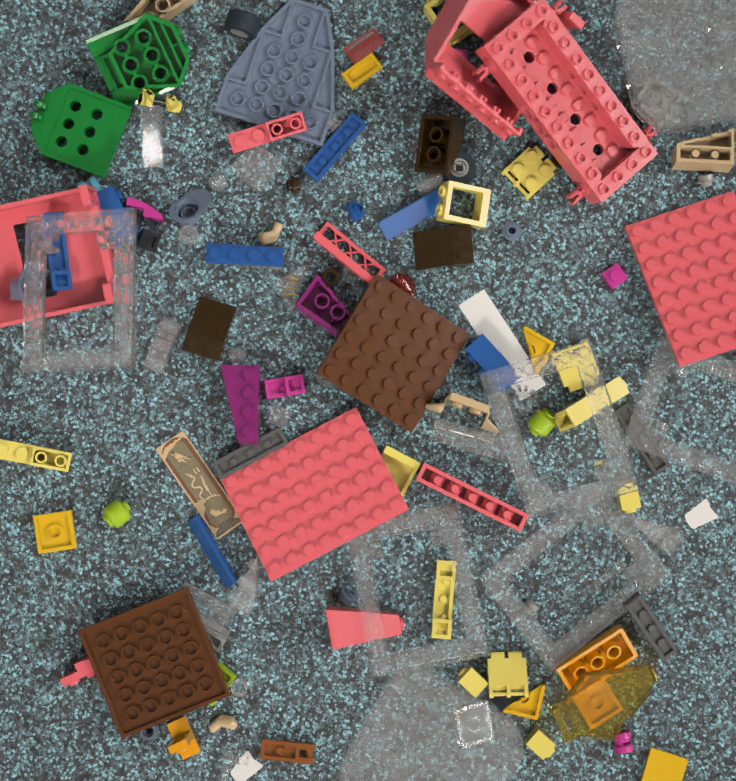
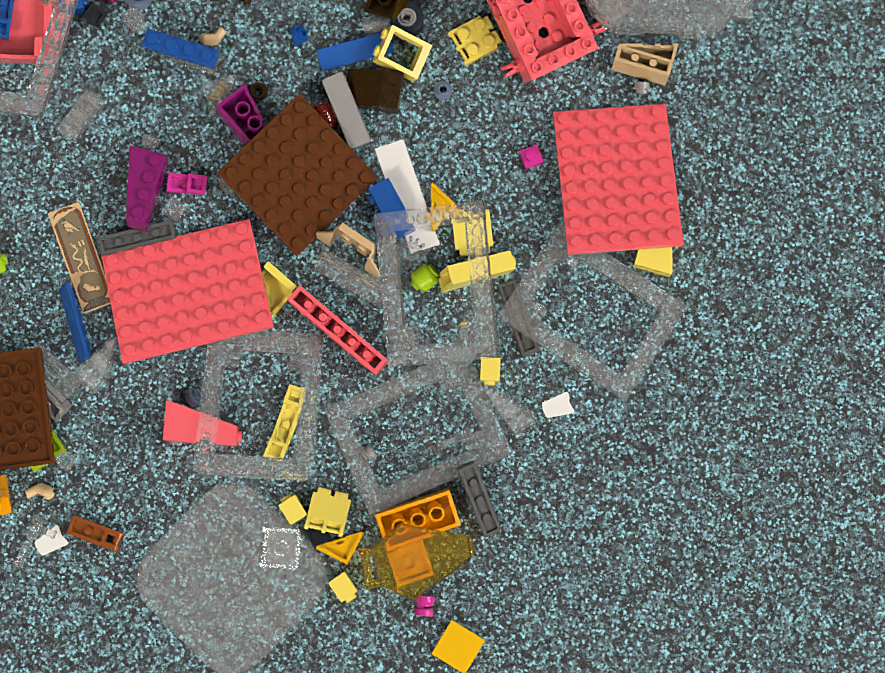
camera: 15 degrees right, 5 degrees down
(209, 329) = (129, 112): dark brown slope -> none
(342, 256) = (275, 75): coral fence -> none
(423, 275) = (346, 110): none -> light grey slope

